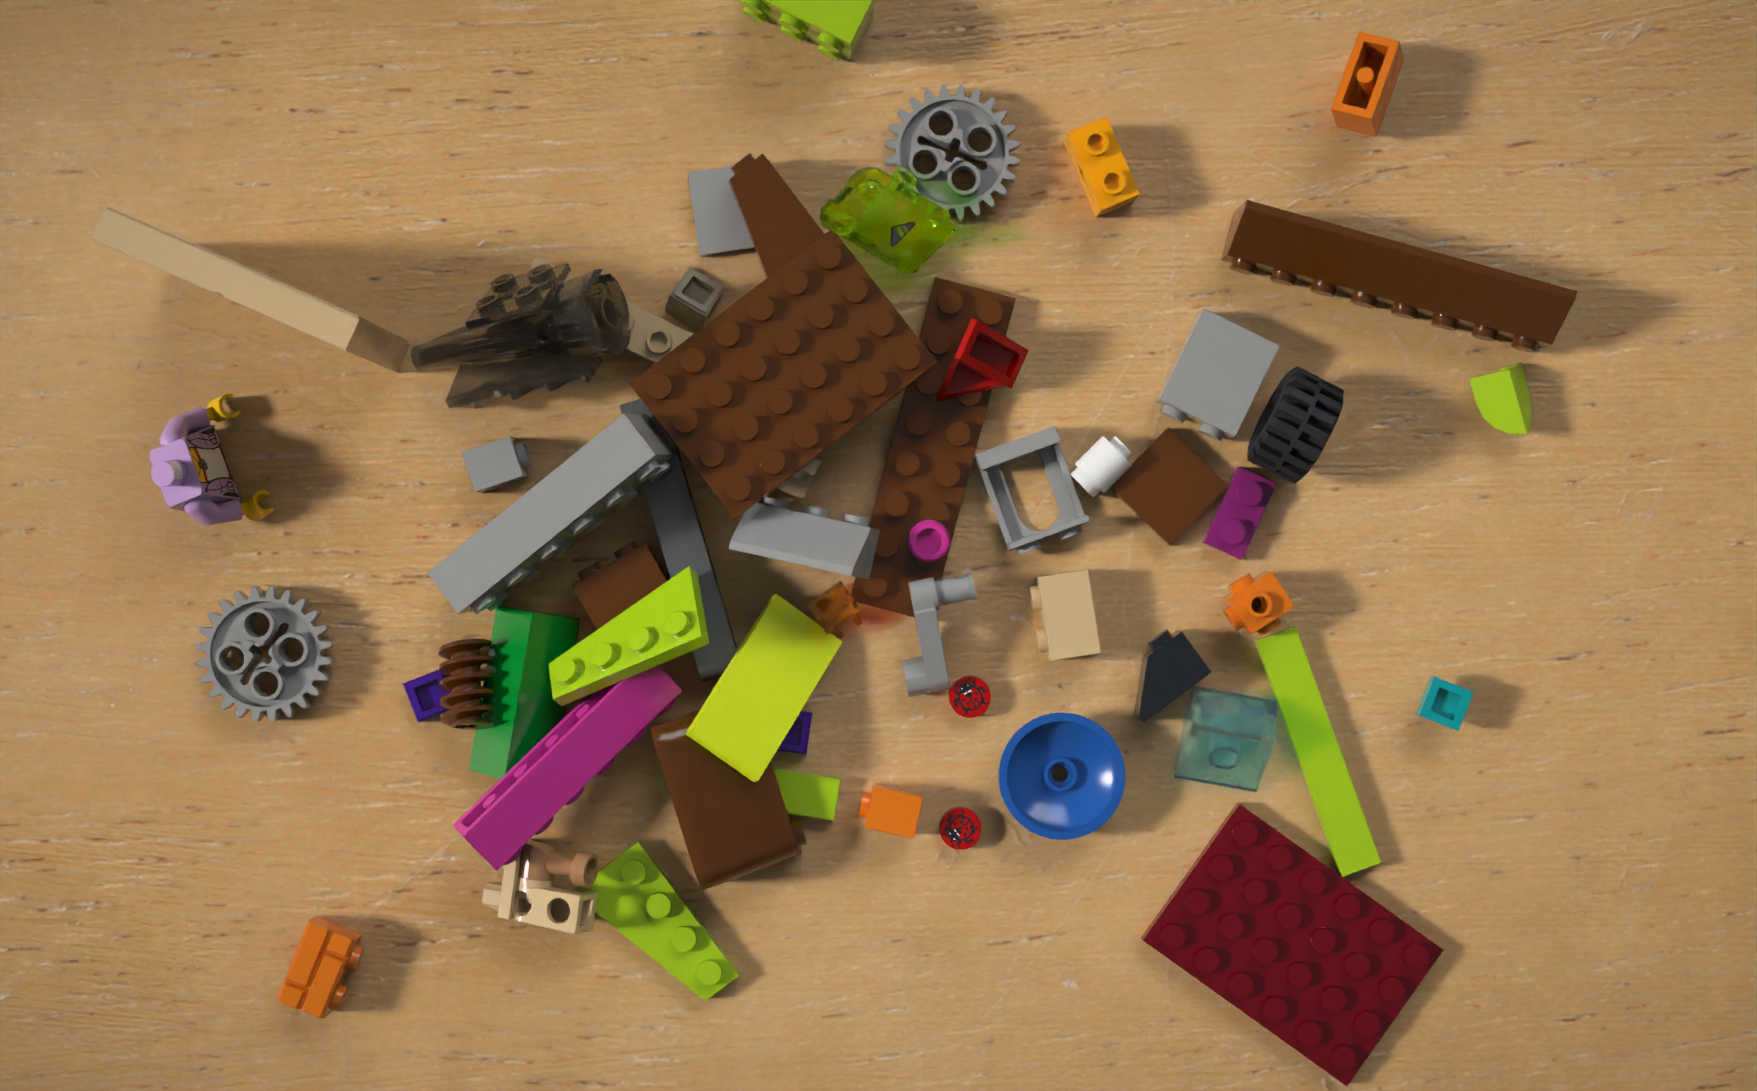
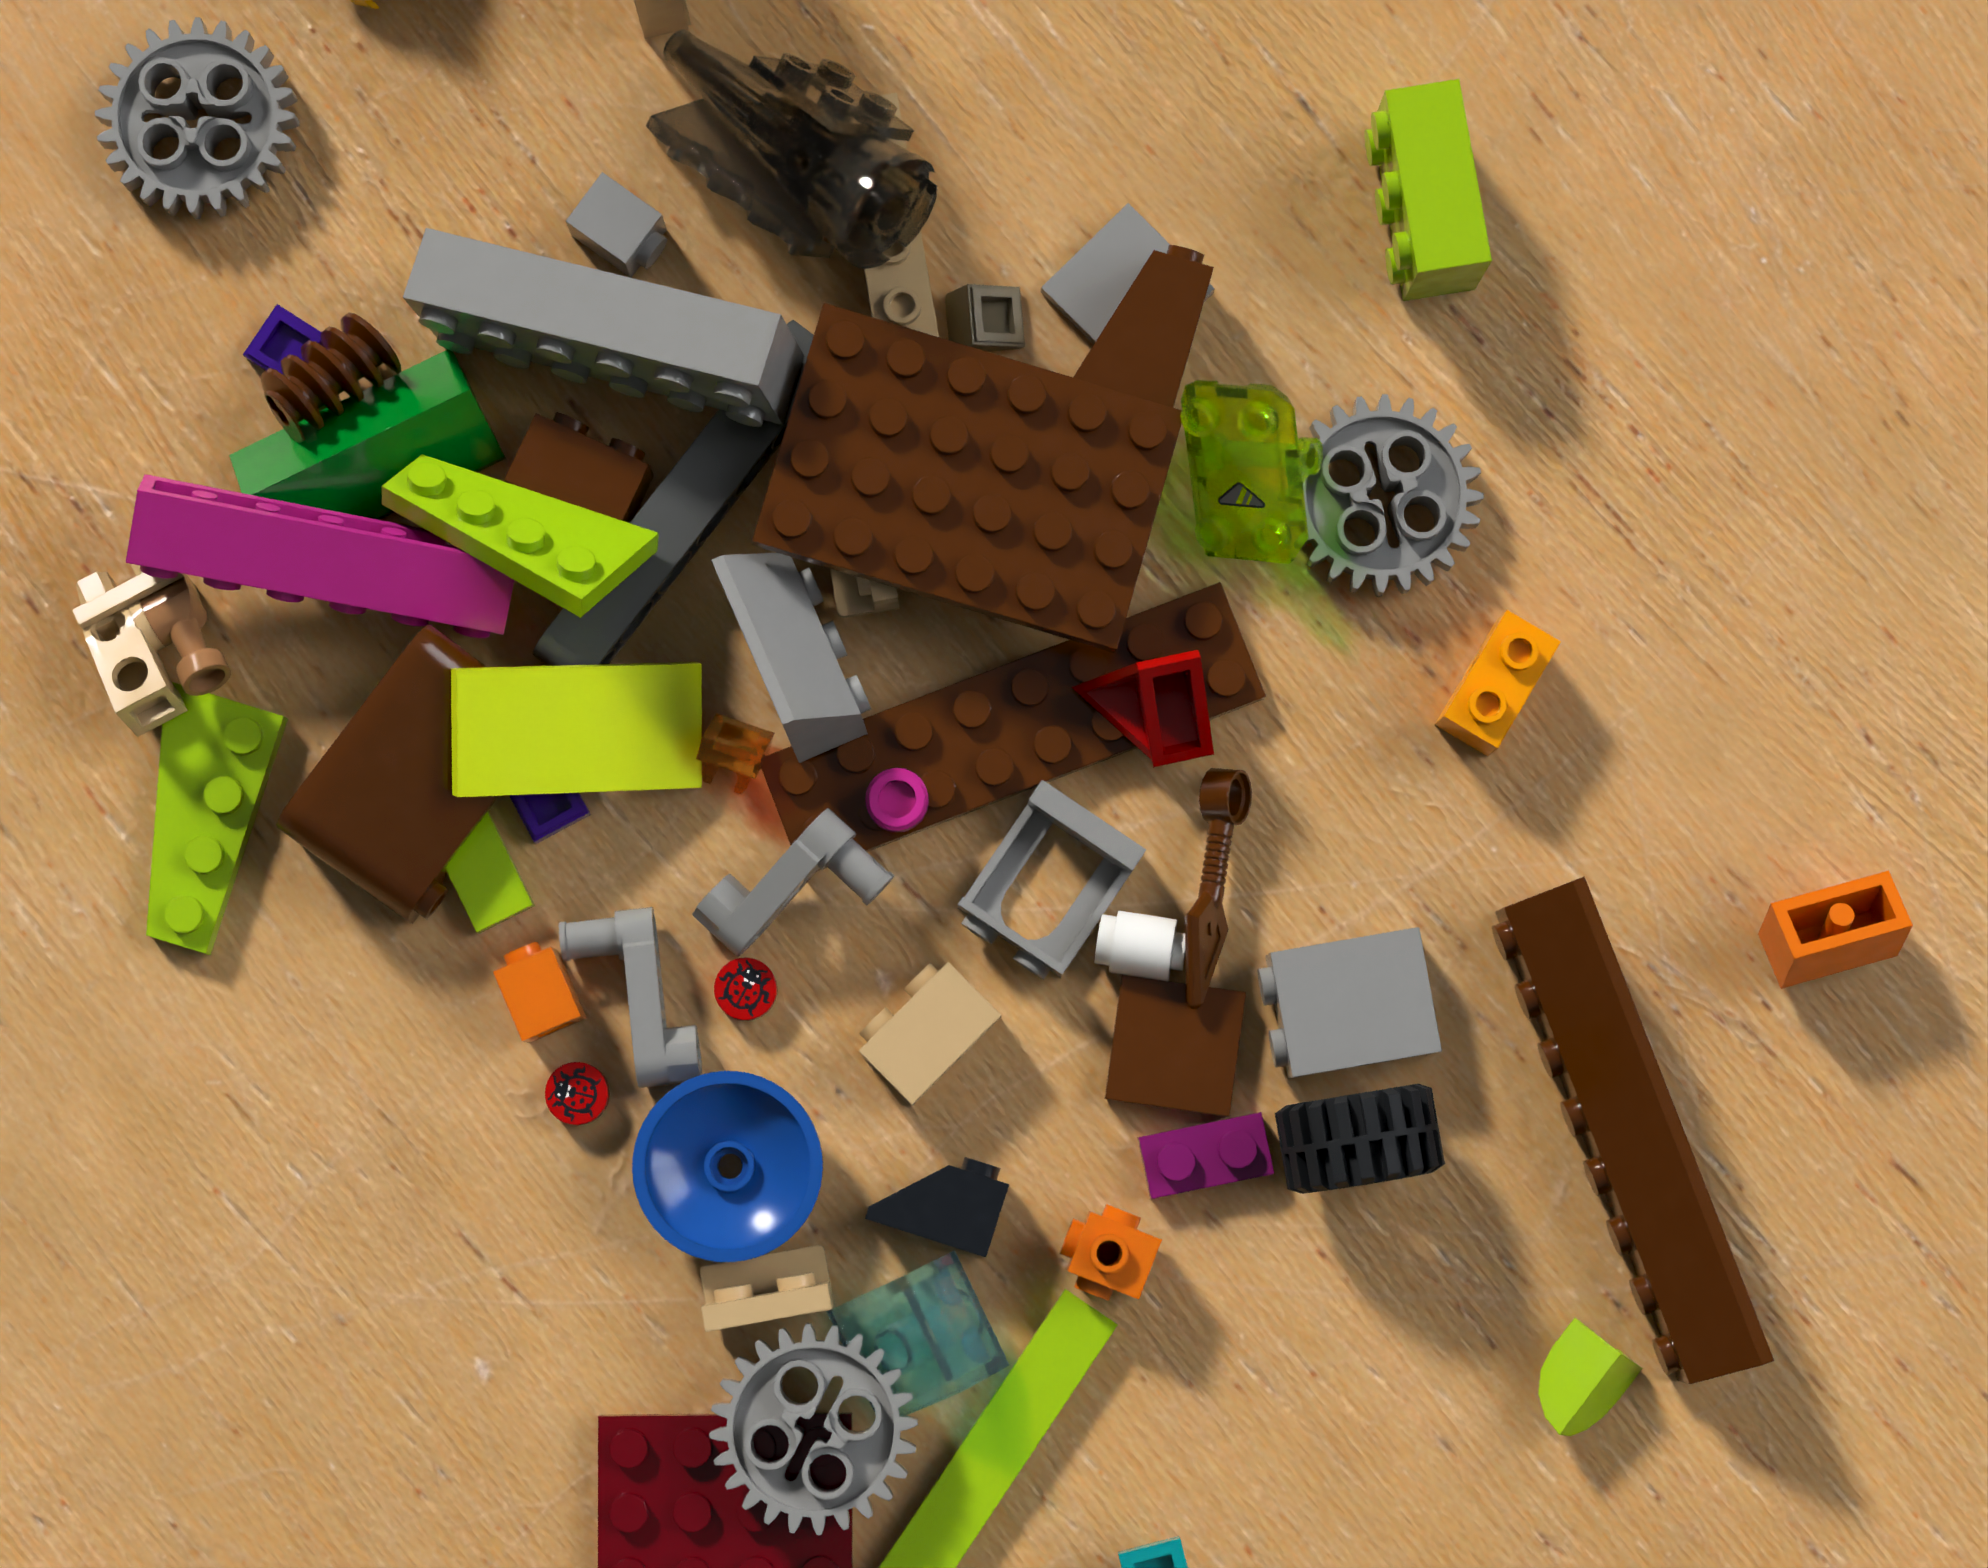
camera: 50 degrees right, 5 degrees down
(972, 767) = (659, 1052): none -> light grey beam
(1060, 365) = (1223, 803): none -> reddish brown piece
(1143, 802) = (766, 1288): none -> tan bracket
(1203, 848) = (762, 1402): none -> light grey gear

